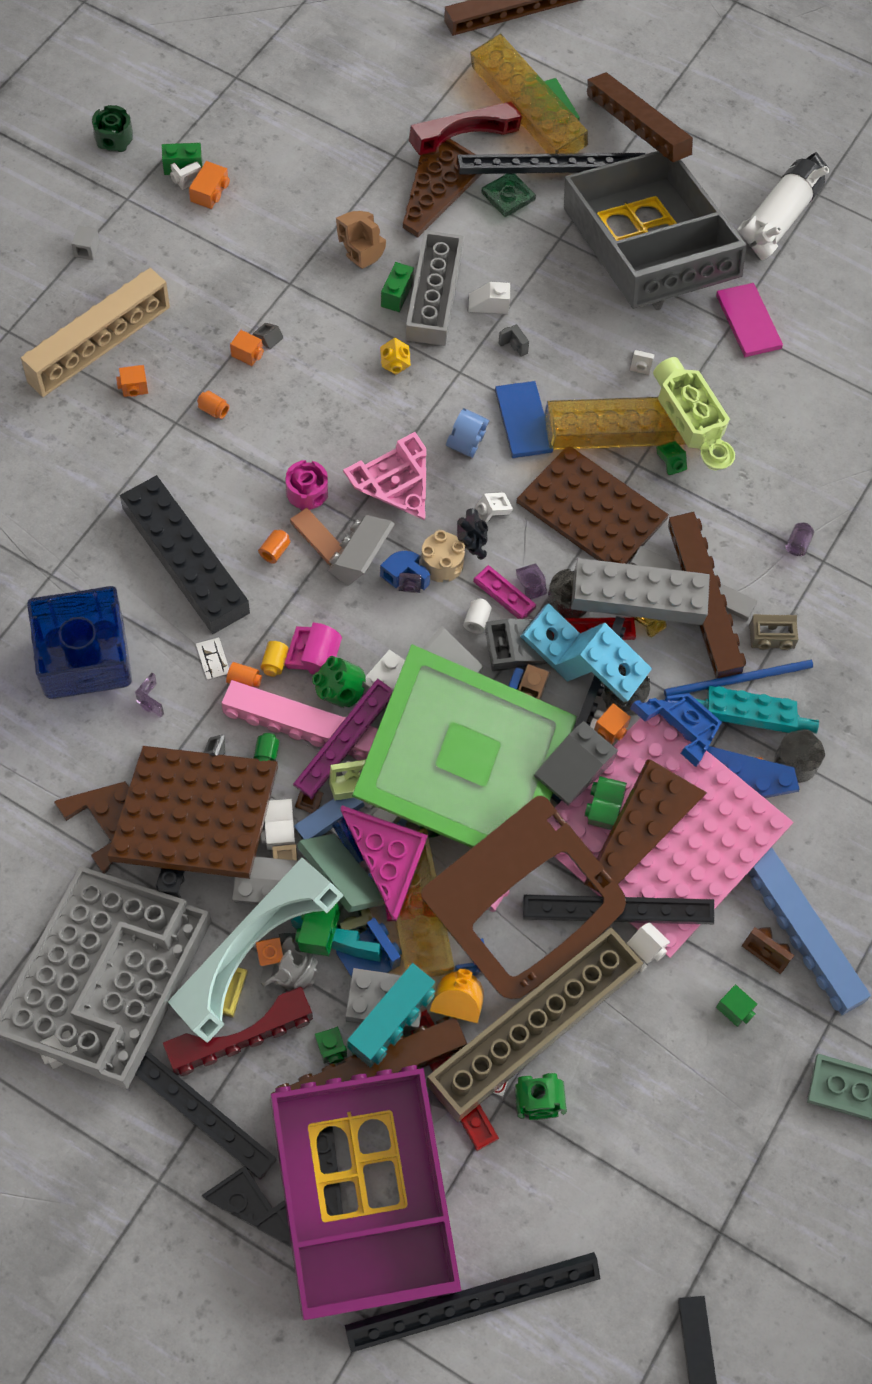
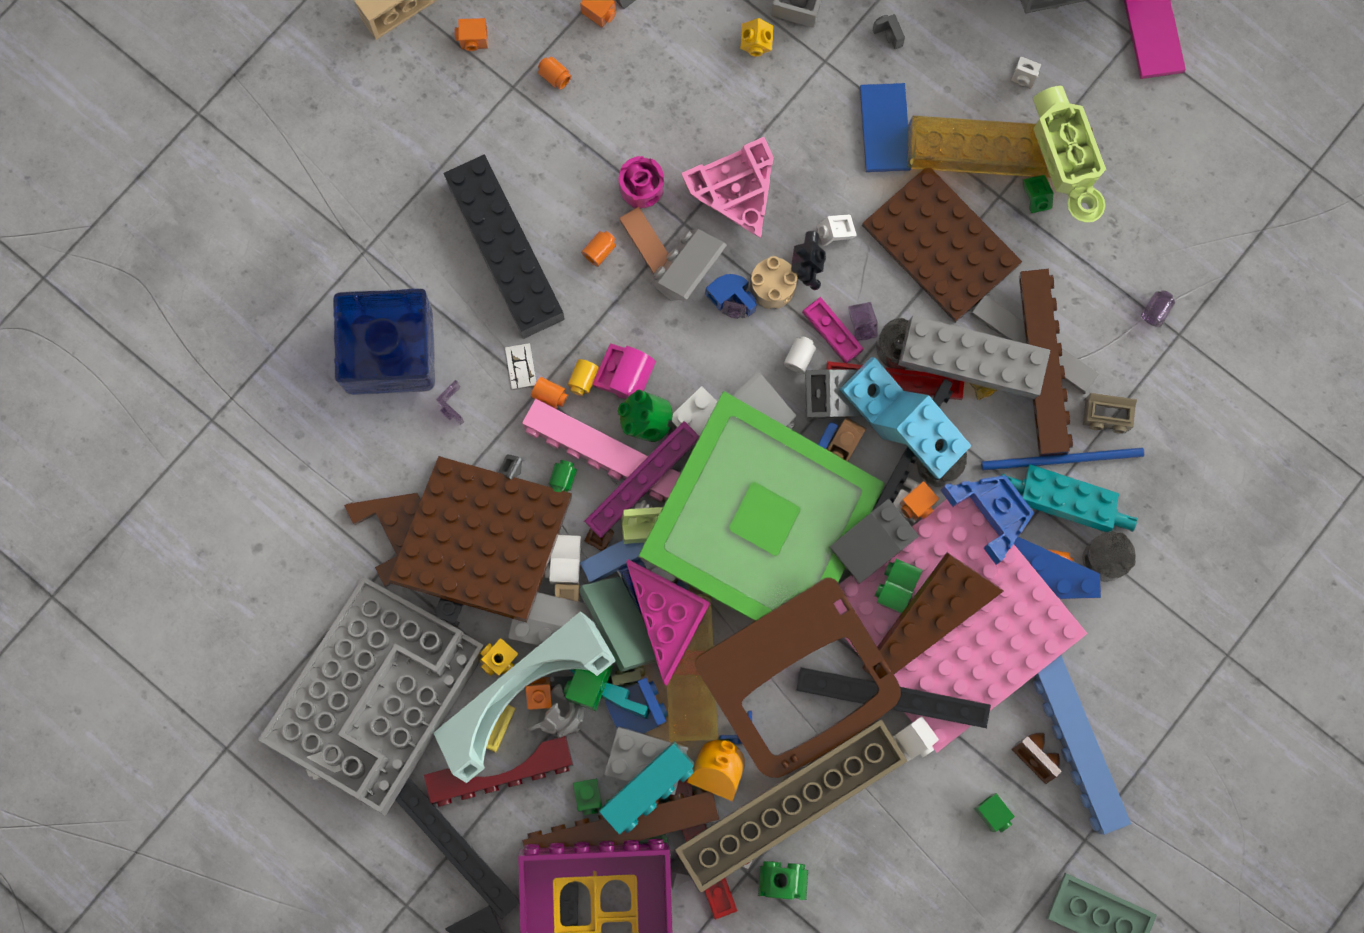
camera: 10 degrees right, 15 degrees up
(223, 921) = (505, 654): none -> yellow brick
(467, 432) = (820, 139): medium blue brick -> none

